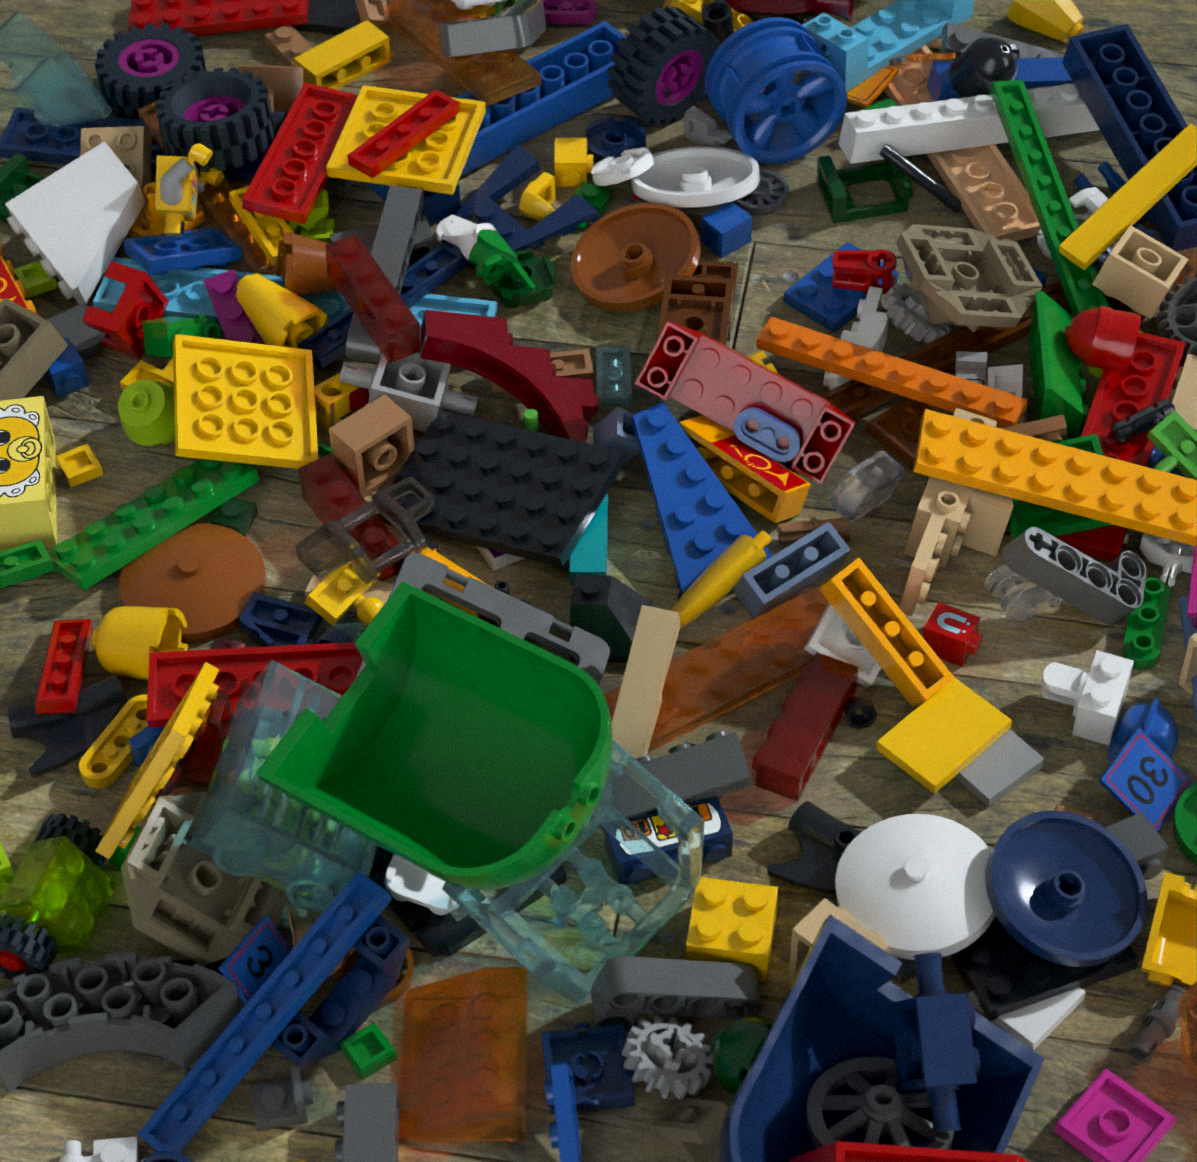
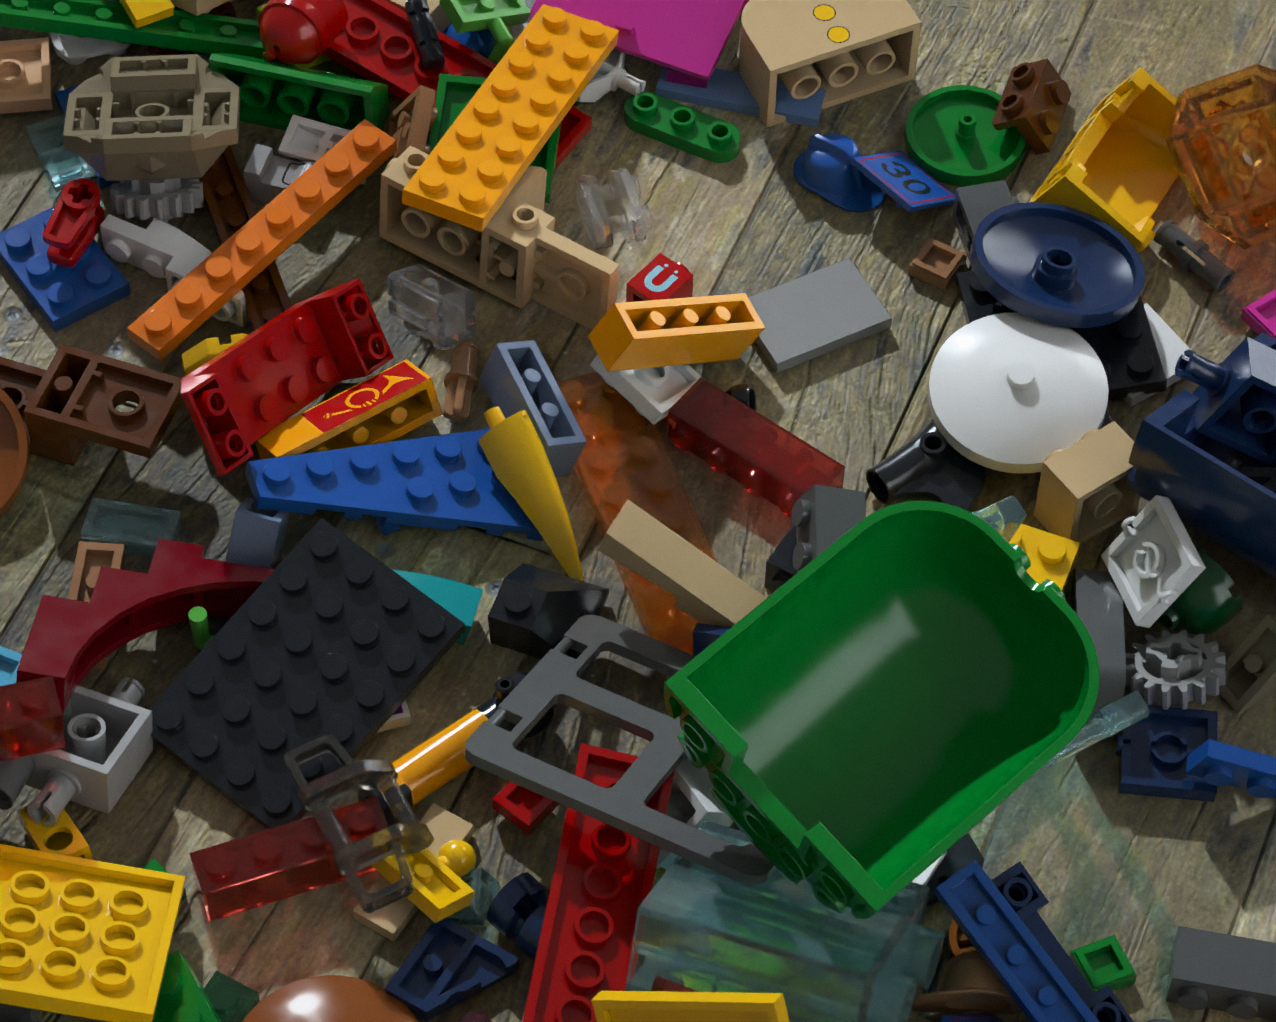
camera: 80 degrees left, 5 degrees up
(373, 444) = (181, 800): medium nougat brick -> none
(466, 1058) = (1136, 859): clear orange slope -> none
(740, 1004) = (1152, 561): none -> white plate
(767, 435) = (318, 383): blue plate -> none
(899, 428) = (339, 250): reddish brown plate -> none
(943, 735) = (808, 332): yellow tile -> none
(1094, 694) = (782, 189): white brick -> none
(1097, 589) = (635, 145): dark grey beam -> none

